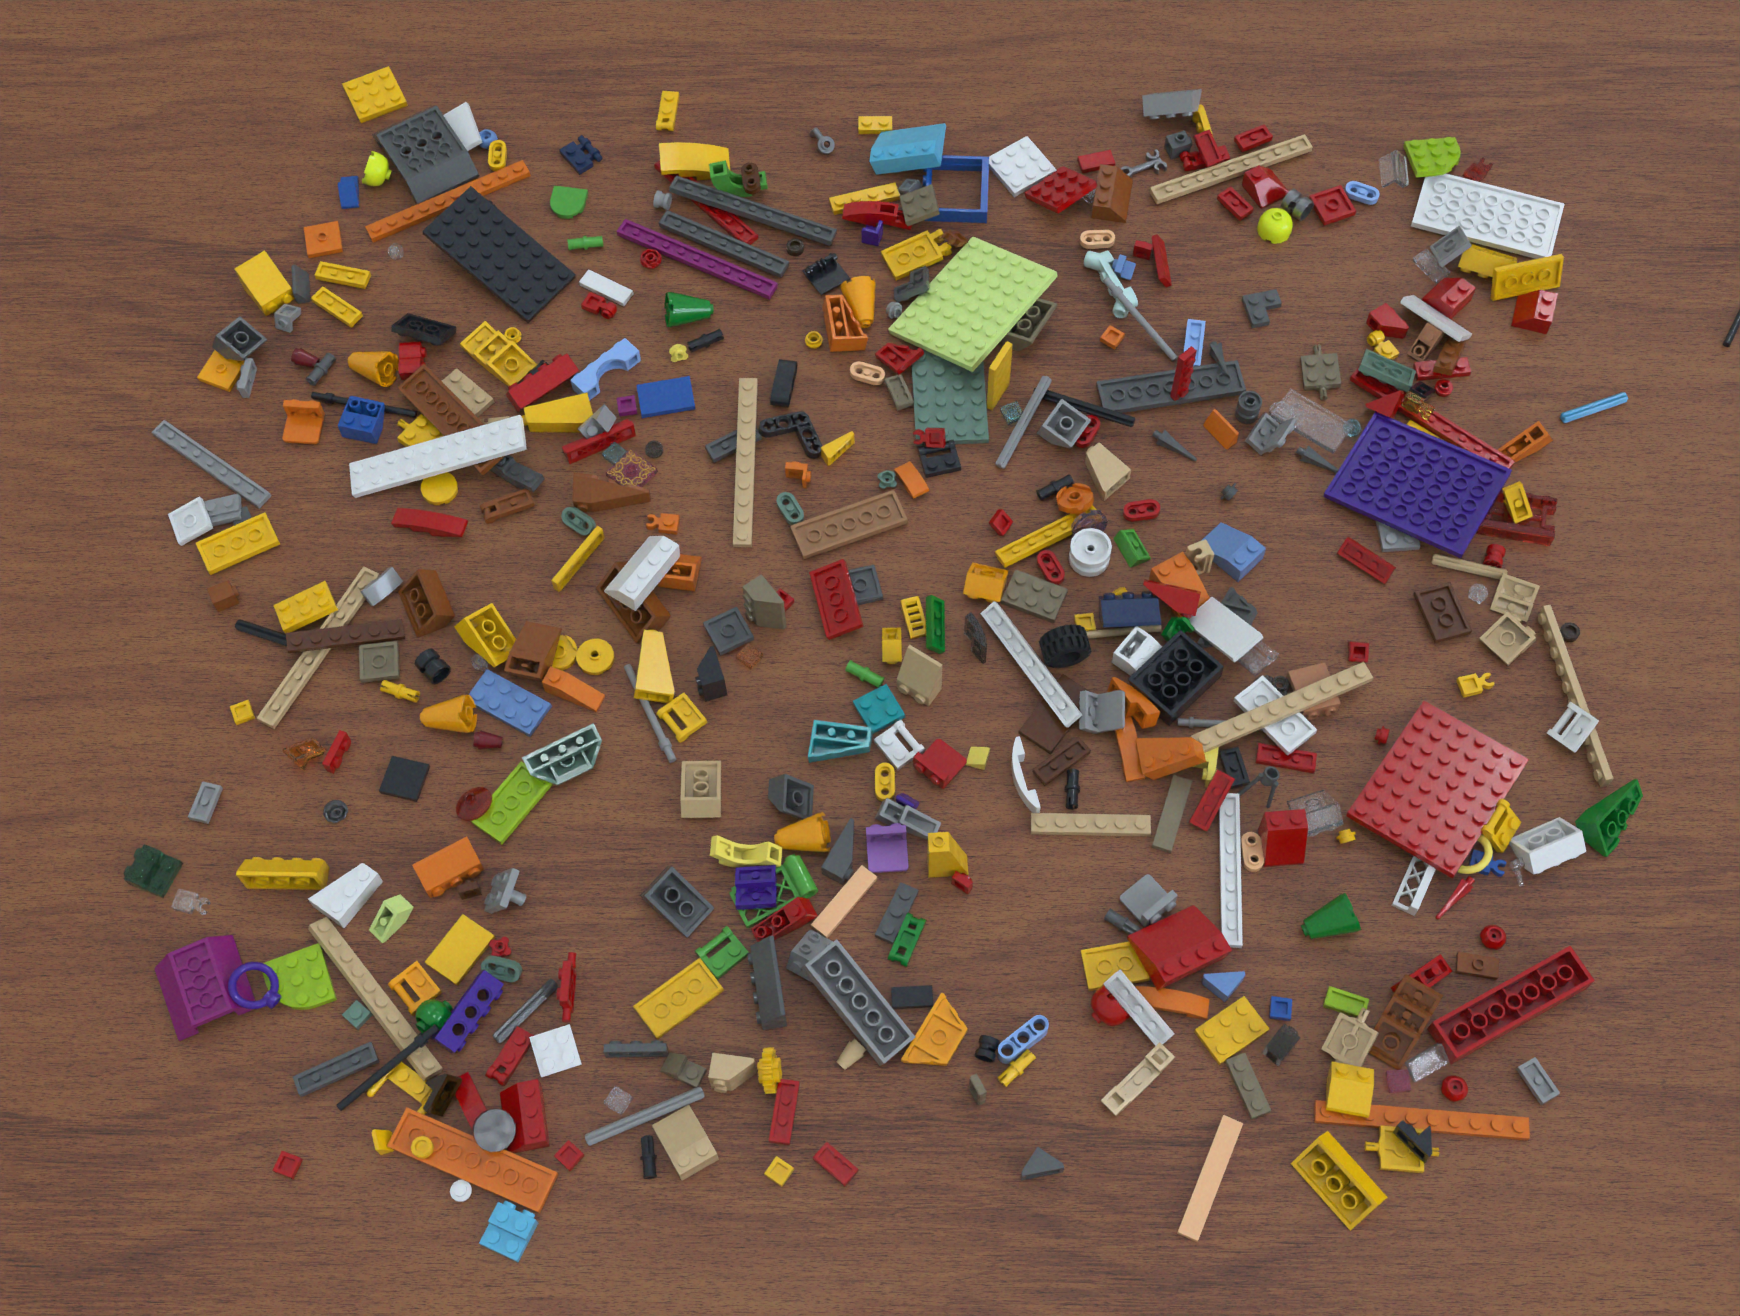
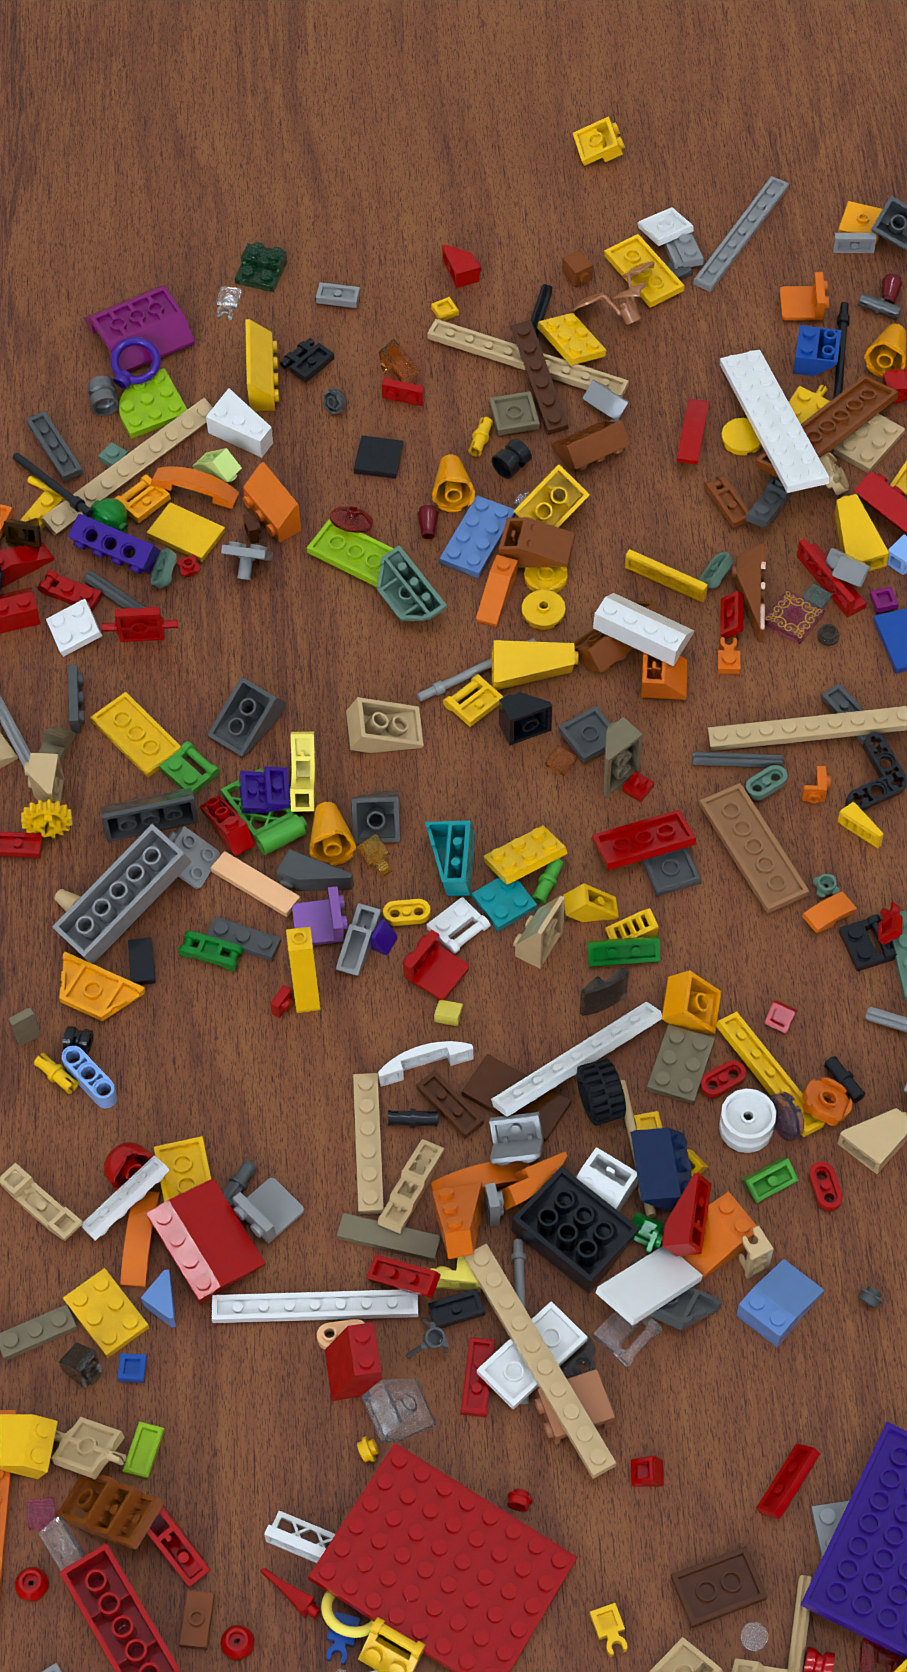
camera: 85 degrees right, 5 degrees down
(74, 564) = (599, 141): none -> yellow plate
(195, 693) = (461, 266): none -> red slope
(283, 543) = (628, 308): none -> nougat plant
(284, 831) = (310, 363): none -> black plate
(288, 1020) = (102, 395): none -> flat silver wheel
(408, 936) = (197, 481): none -> orange slope
(618, 1100) = (22, 691): clear tile -> none
(625, 514) = (732, 614): none -> red plate
(764, 528) = (736, 759): none -> dark grey axle
(825, 803) = (374, 853): none -> clear yellow plate
(841, 687) = (525, 854): none -> yellow plate
(1131, 794) = (411, 1186): none -> tan slope
(1155, 728) = (494, 1204): none -> light grey plate
(1332, 919) = (249, 1430): green cone -> none

